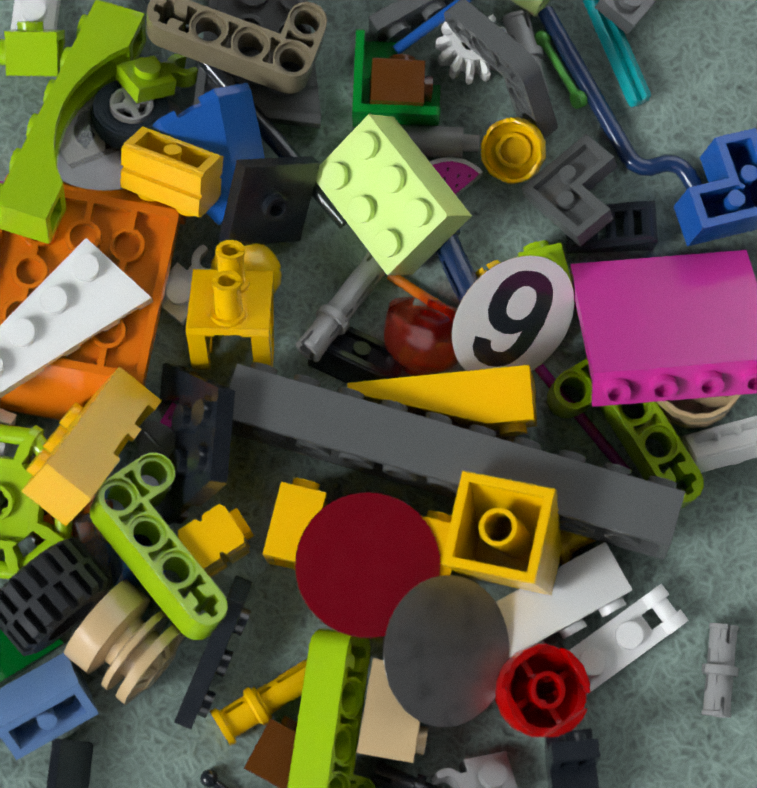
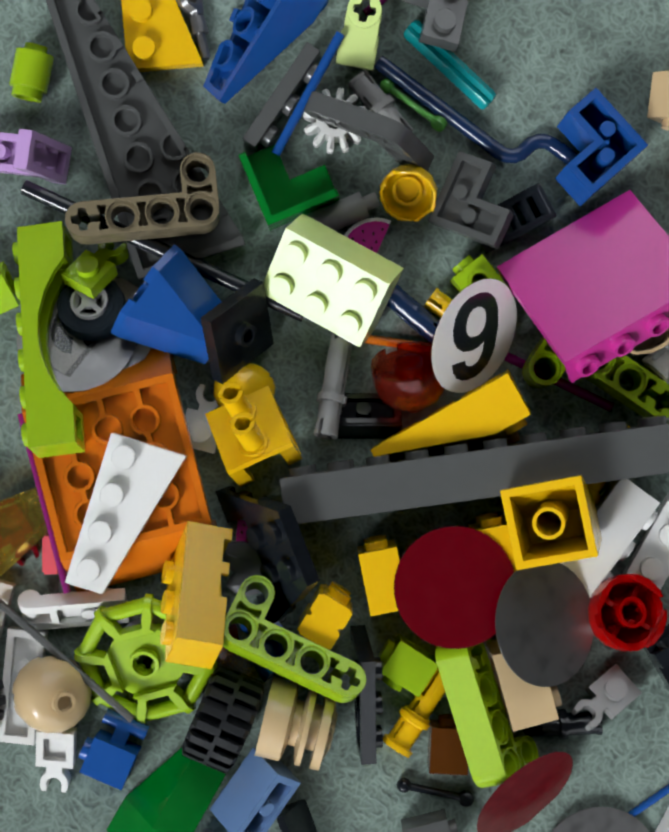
camera: 25 degrees left, 10 degrees up
(171, 172) = (151, 348): yellow brick -> none
(274, 641) = (406, 665): none -> lime brick
(399, 81) = (293, 182): reddish brown brick -> none

